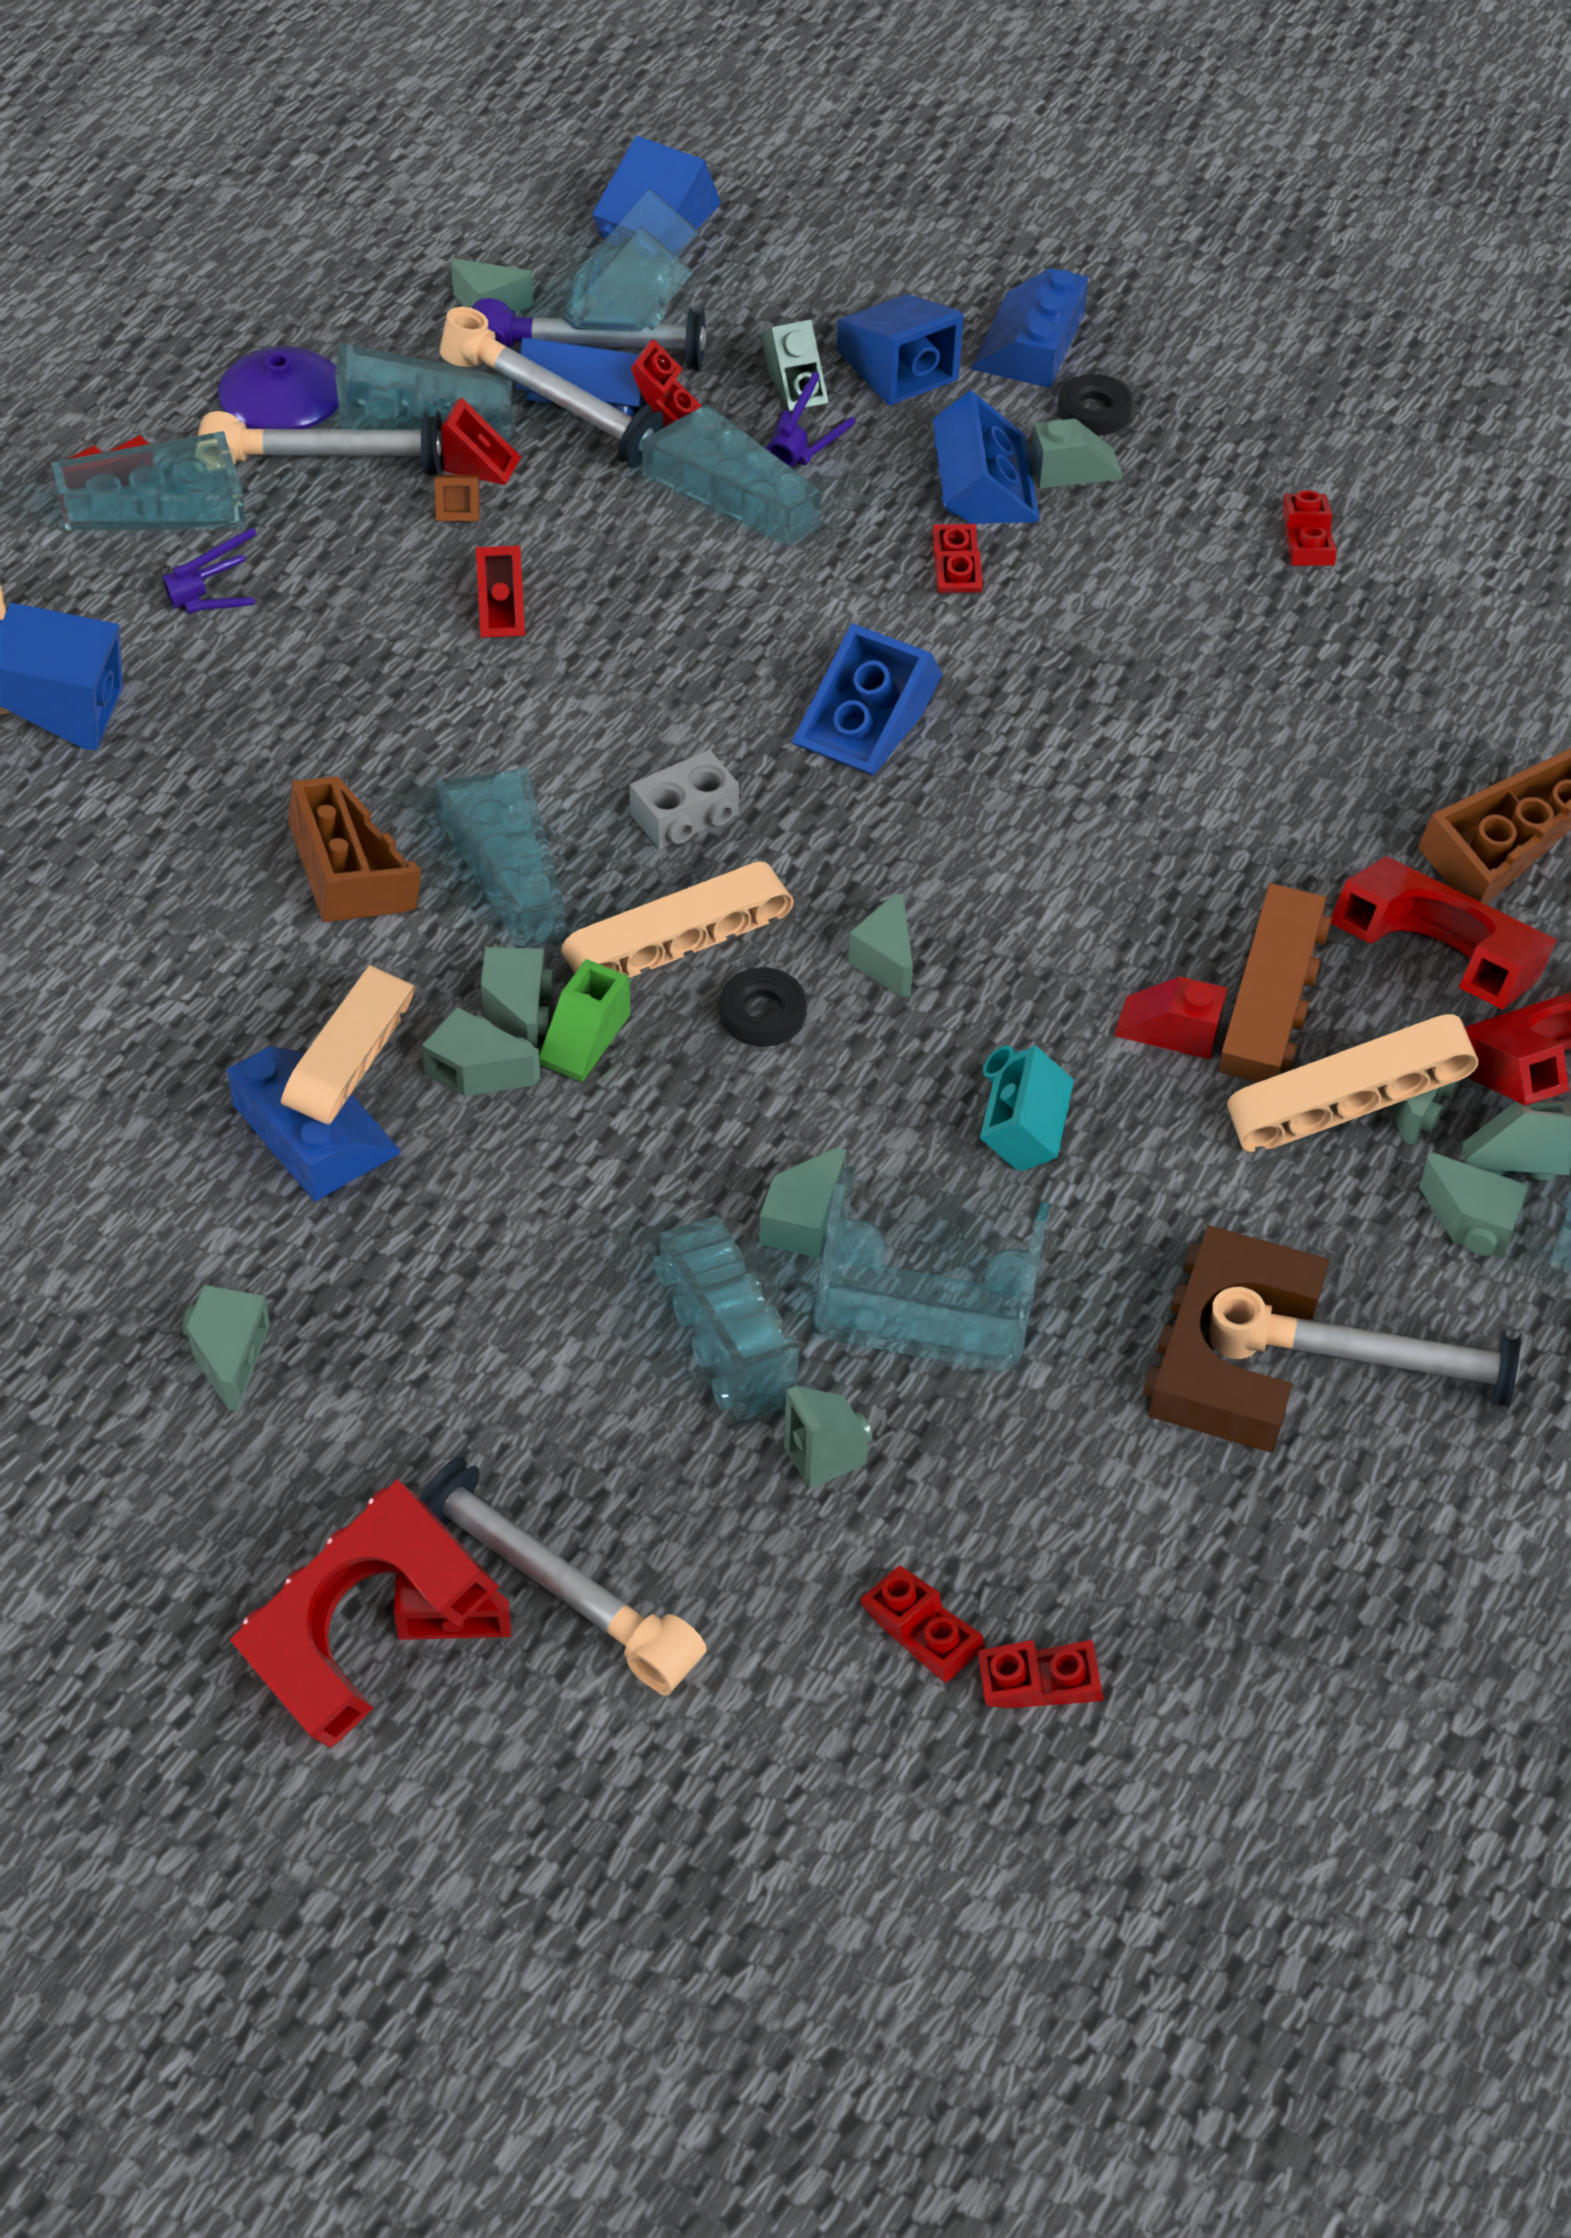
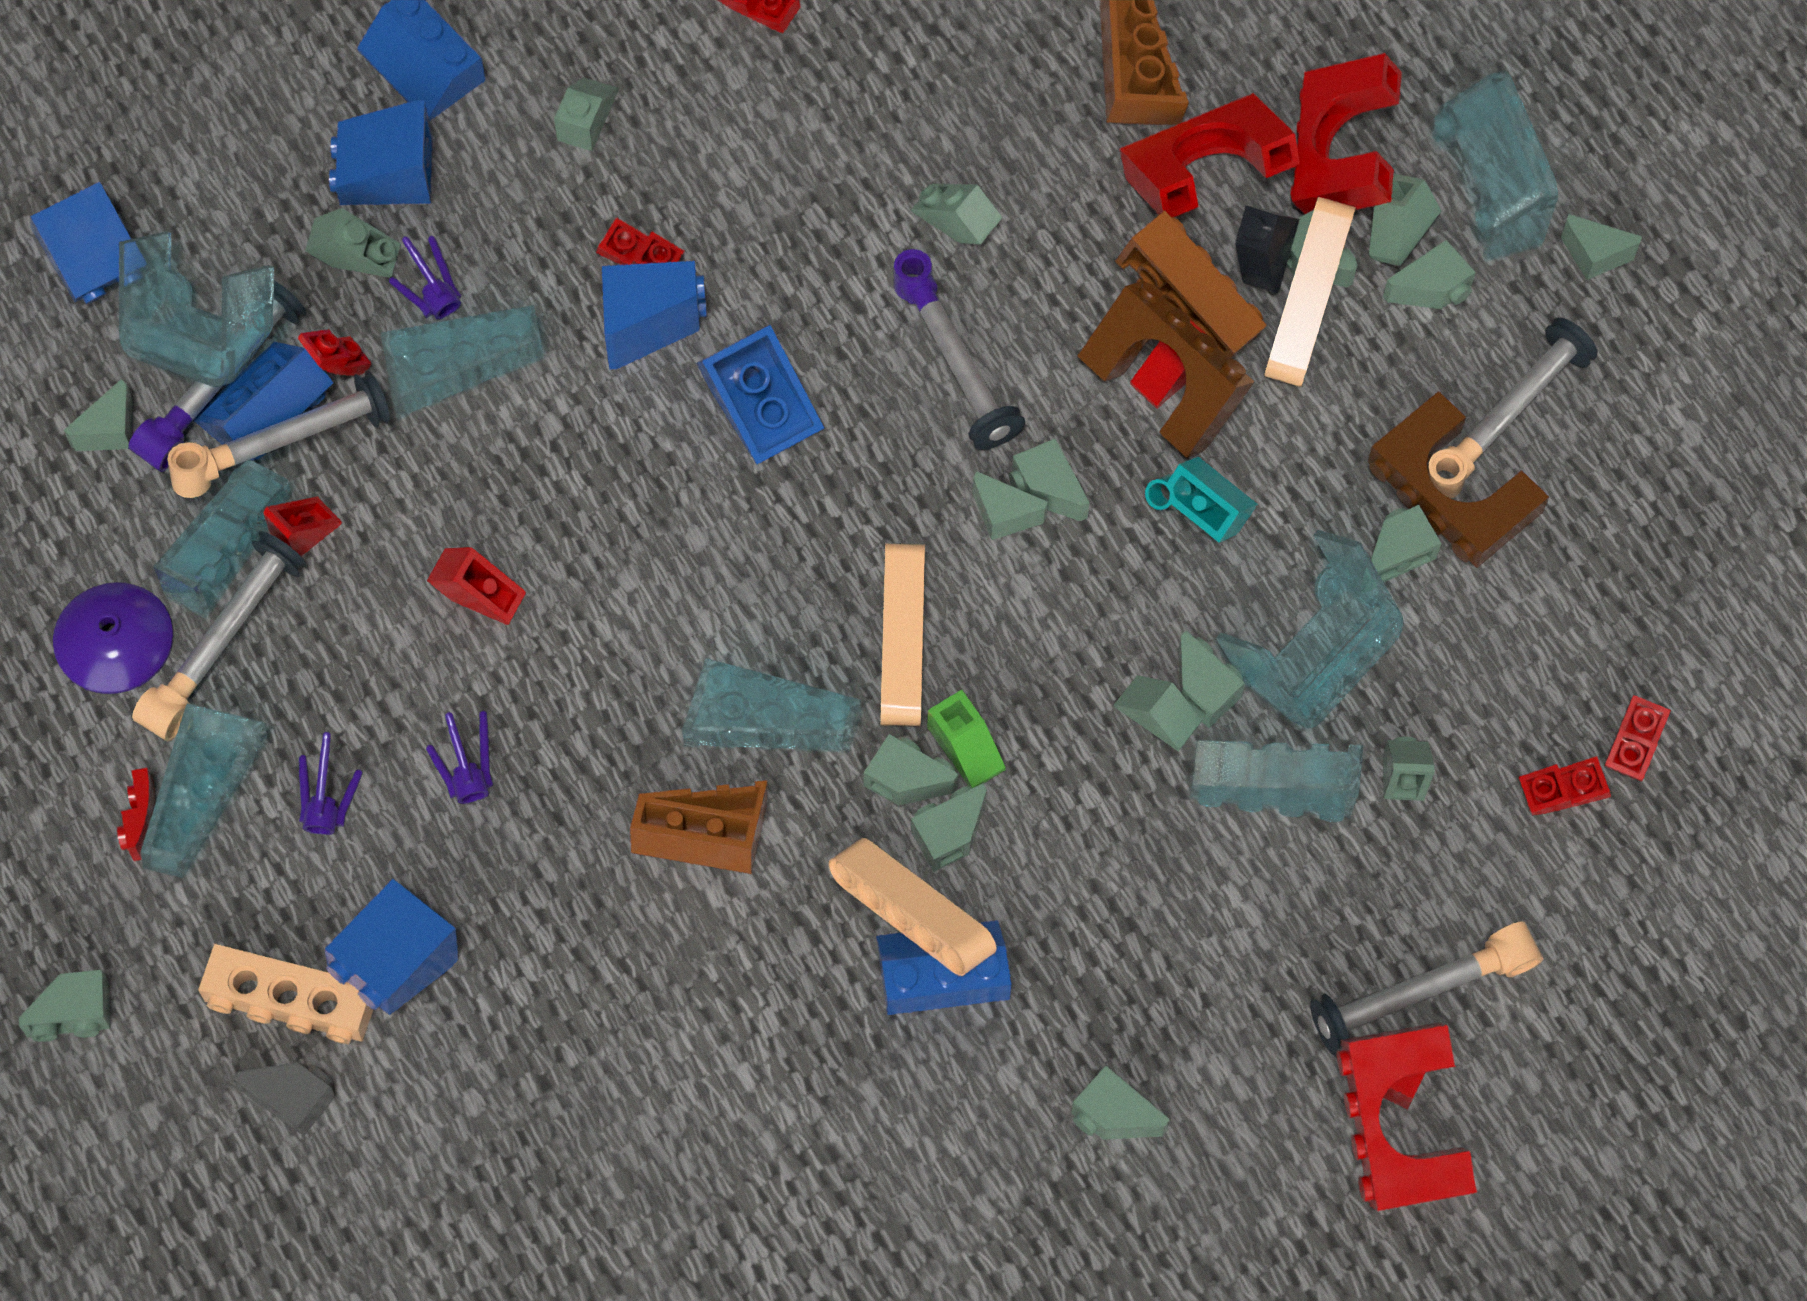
camera: 60 degrees left, 15 degrees up
(288, 668) = (468, 781): none -> dark purple plant
(457, 498) = (348, 566): dark orange tile -> none
(684, 799) = (781, 567): light grey brick -> none
(742, 1186) = (1159, 709): none -> sand green slope
(762, 982) = (1013, 595): black tyre -> none
(882, 573) = (649, 307): none -> blue slope
(949, 968) = (1047, 475): none -> sand green slope
(974, 891) = (994, 424): none -> piece
(983, 464) = (555, 177): blue slope -> none
(1096, 387) = (526, 42): black tyre -> none
(1106, 1316) = (1404, 543): none -> sand green slope
(1176, 955) = (1212, 379): none -> reddish brown arch
(1201, 766) = (958, 211): none -> sand green slope
(1375, 1007) = (1264, 246): none -> black slope

